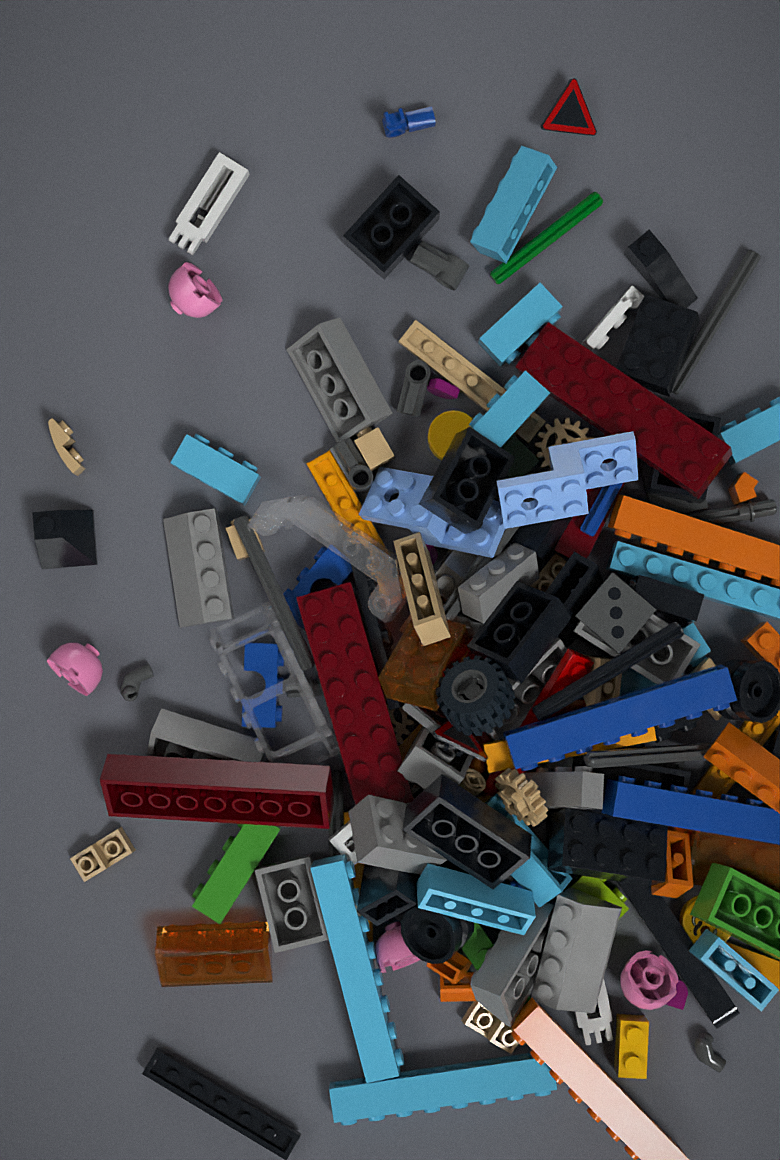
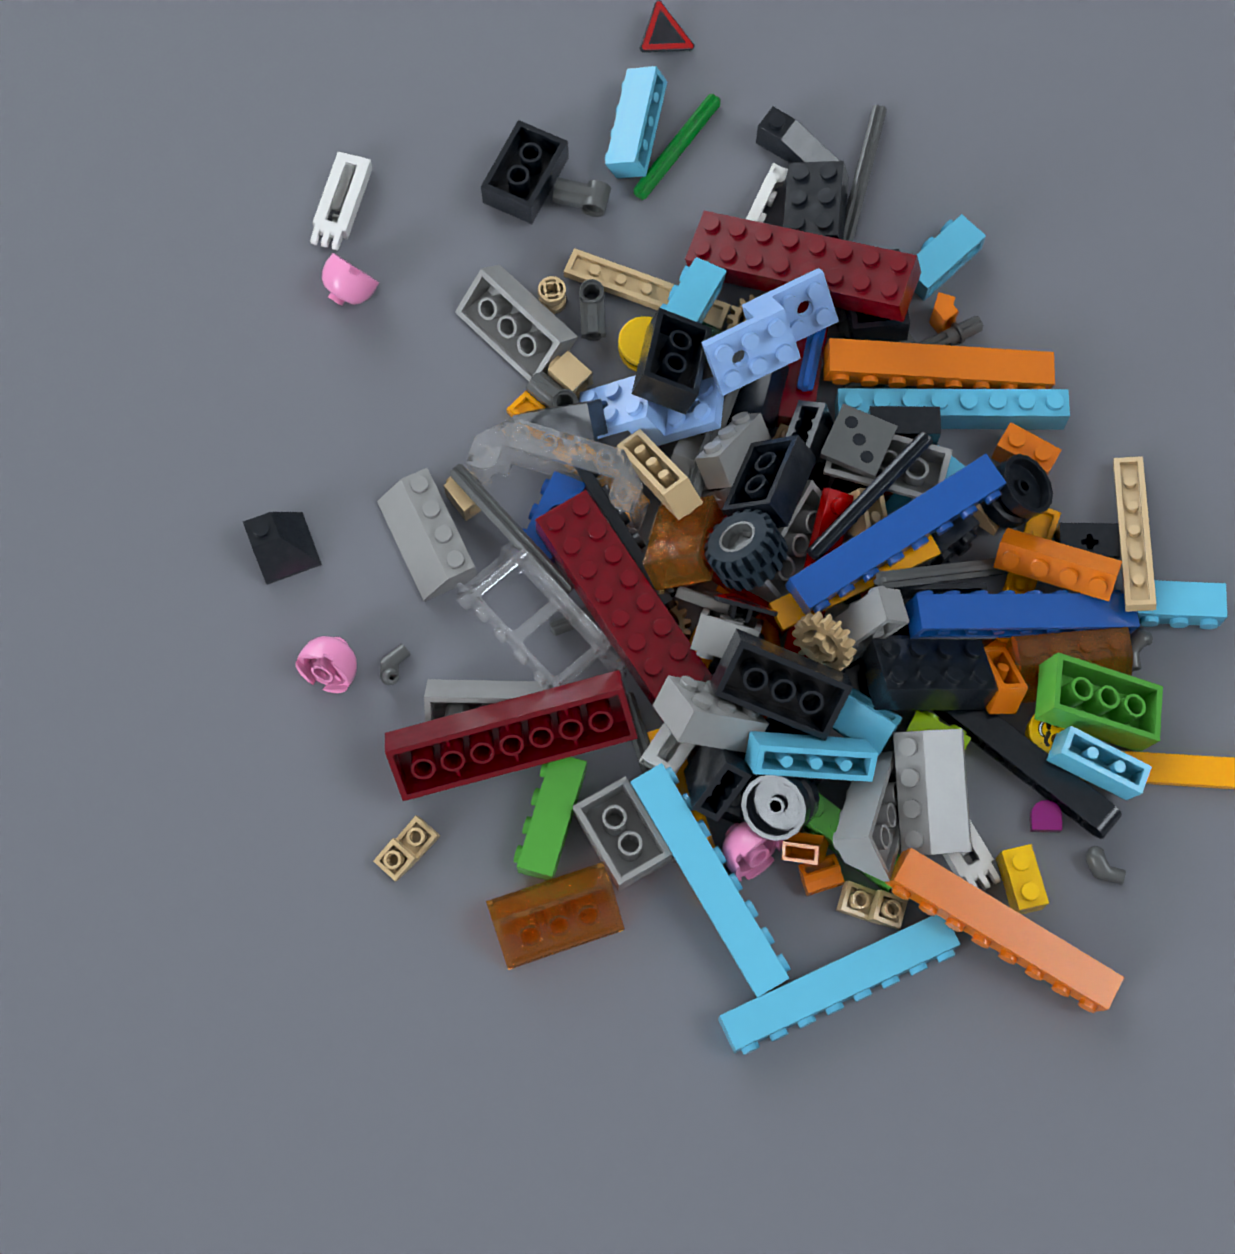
camera: 20 degrees left, 15 degrees down
(62, 440) = (257, 455): tan slope -> none
(216, 468) = (417, 437): medium azure brick -> none
(221, 1103) = (608, 1072): black plate -> none
(265, 660) = (518, 604): blue arch -> none
(355, 503) = (579, 419): none -> black slope
(378, 365) = (555, 300): none -> tan wheel
(397, 122) = (505, 80): blue bar -> none
(442, 389) = (620, 303): magenta tile -> none
(520, 325) = (676, 227): medium azure brick -> none
(648, 980) = (1015, 806): bright pink cylinder -> none

